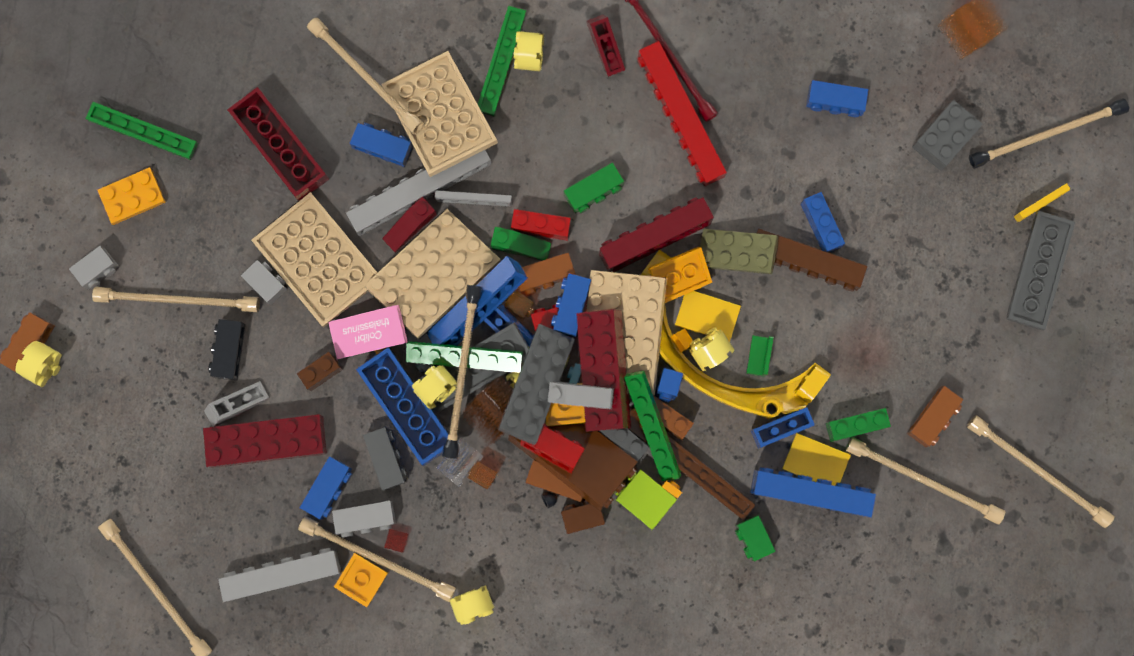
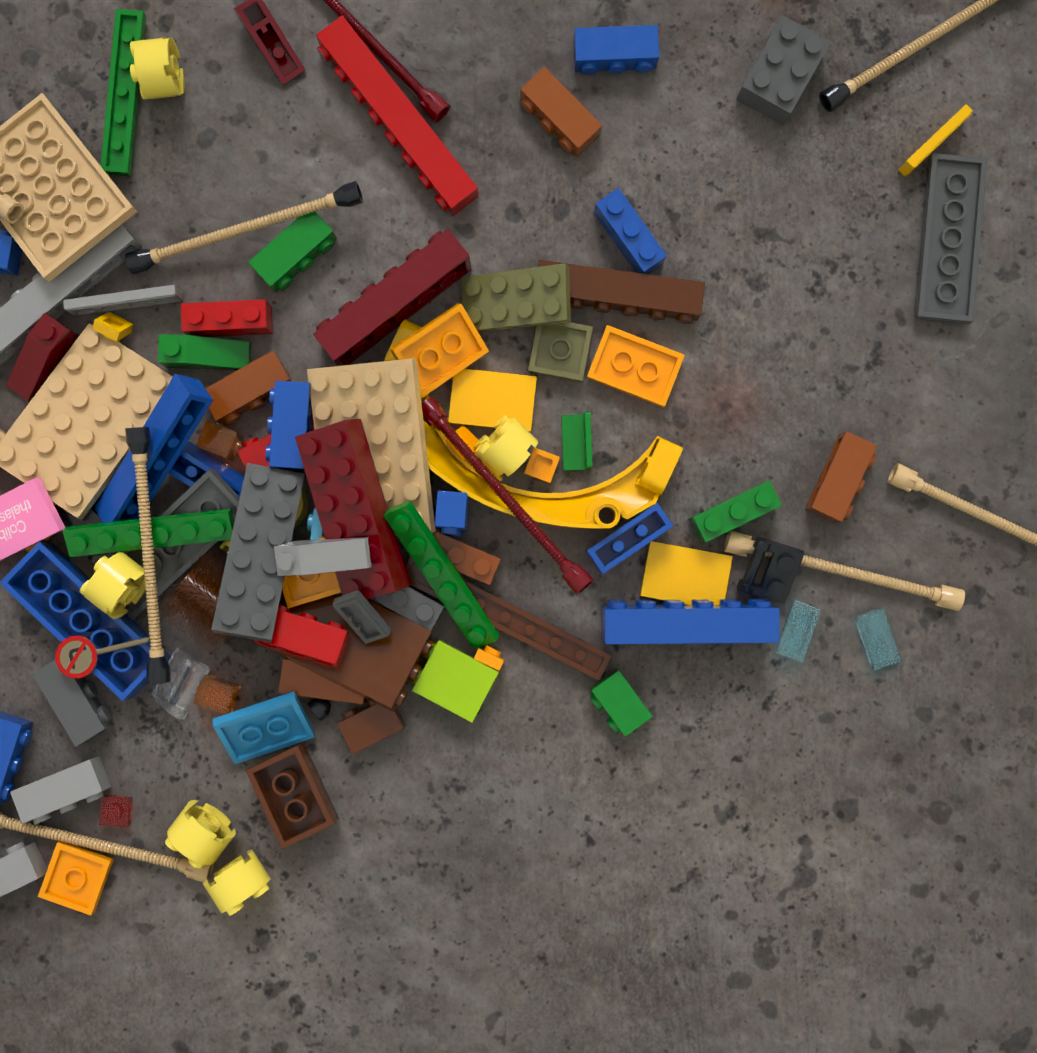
camera: 15 degrees left, 5 degrees up
(399, 429) = (78, 655): none -> piece
(453, 566) = (200, 834): none -> light yellow brick
(462, 214) = (112, 326): none -> yellow plate
(510, 504) = (263, 727): none -> dark azure plate
(520, 553) = (292, 795): none -> reddish brown brick
(596, 441) = (361, 616): none -> dark grey plate
(638, 160) = (143, 259): none -> tan hose
(732, 366) = (542, 465): none -> light orange plate
(742, 441) = (574, 575): none -> dark red hose
(760, 292) = (561, 350): none -> olive plate
(791, 133) = (560, 112): none -> dark orange brick
(809, 312) = (635, 366): none -> light orange plate
(880, 472) = (778, 573): none -> black plate
(885, 515) = (797, 630): none -> clear light blue plate
(939, 532) = (877, 639): none -> clear light blue plate

